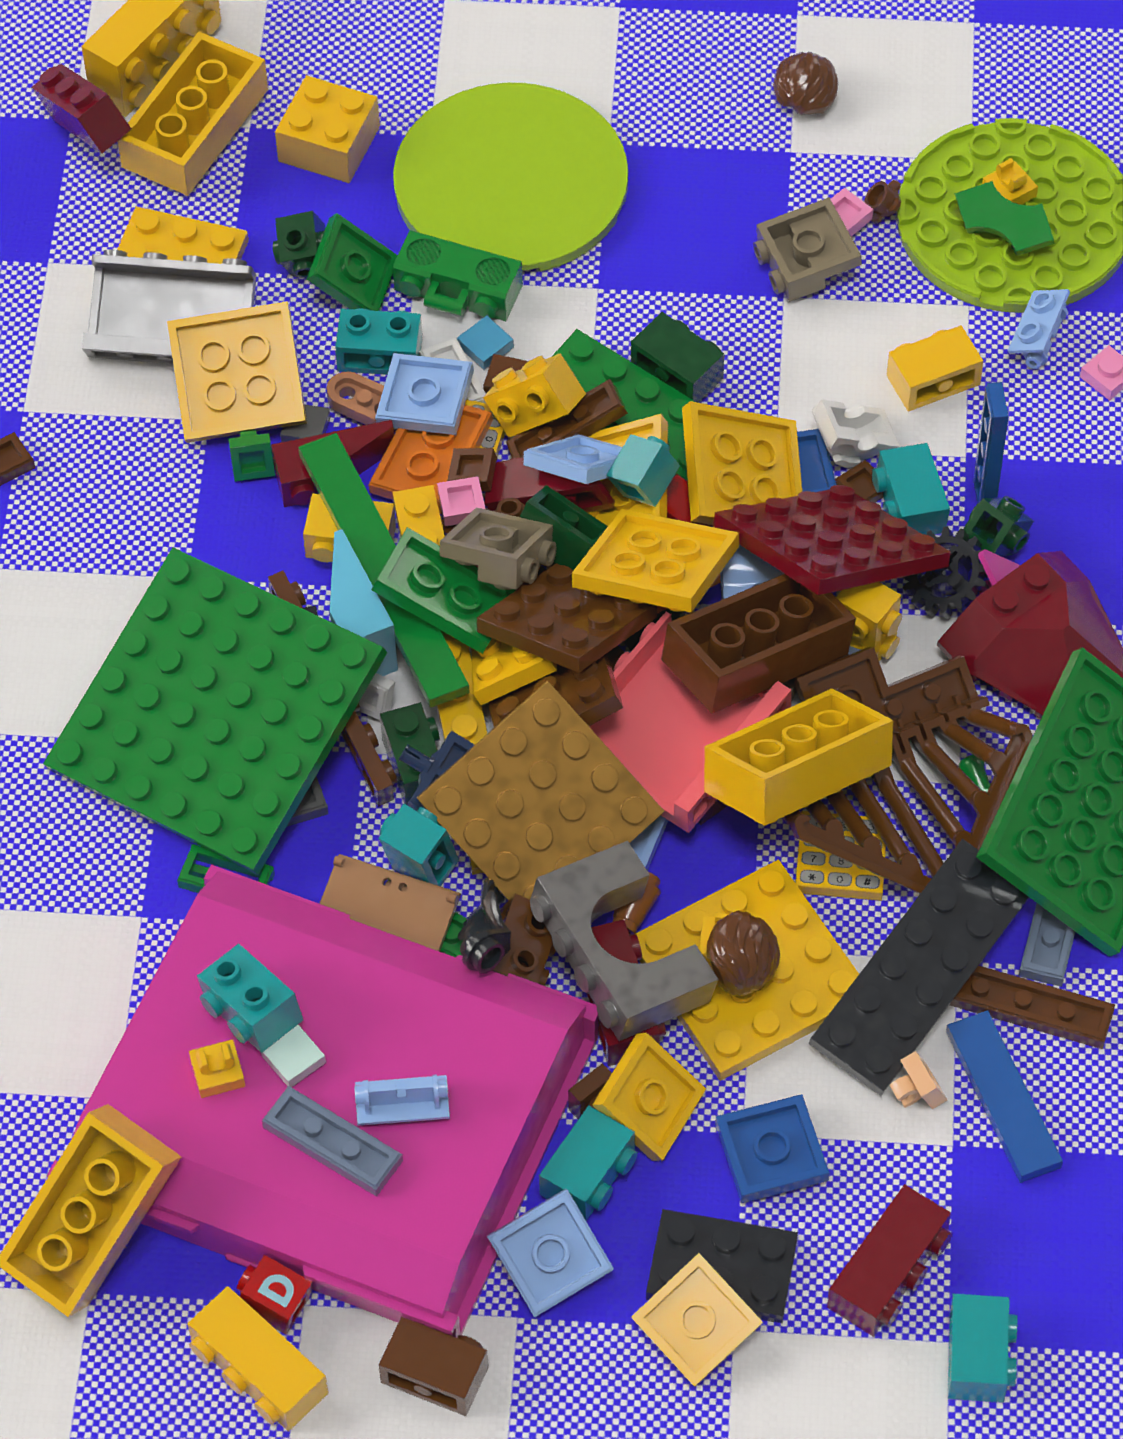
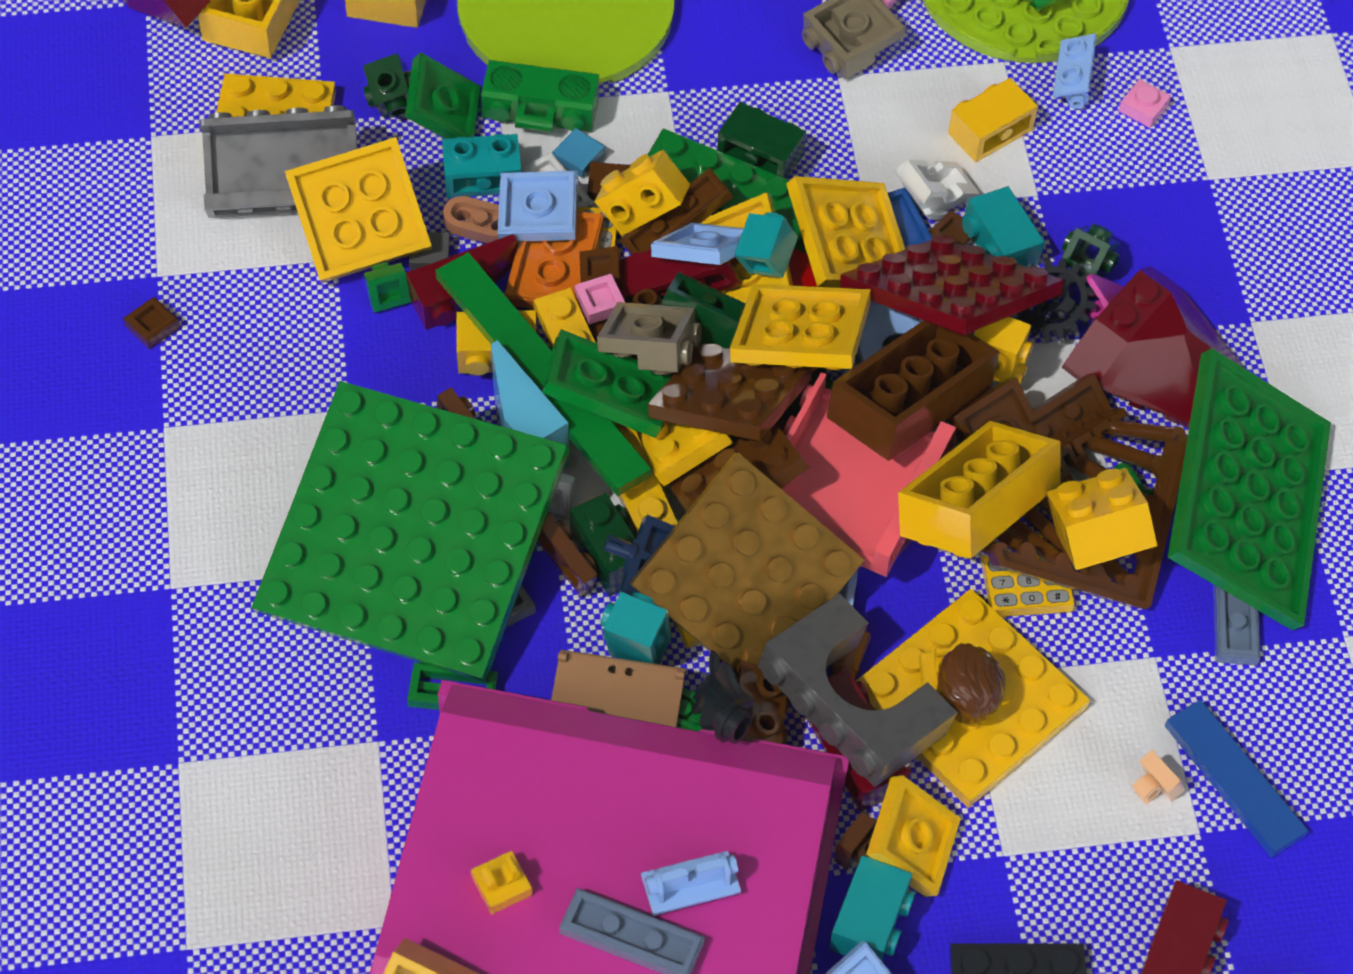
camera: 15 degrees left, 0 degrees up
(249, 998) = (520, 807): teal brick -> none
(294, 1056) = (573, 857): light aqua tile -> none
(772, 1148) = (1037, 866): blue plate -> none
(917, 806) = (1101, 518): none -> yellow brick
(919, 969) = (1131, 671): black plate -> none
(991, 442) = (1075, 177): blue tile -> none
(1036, 1006) = (1228, 686): reddish brown tile -> none

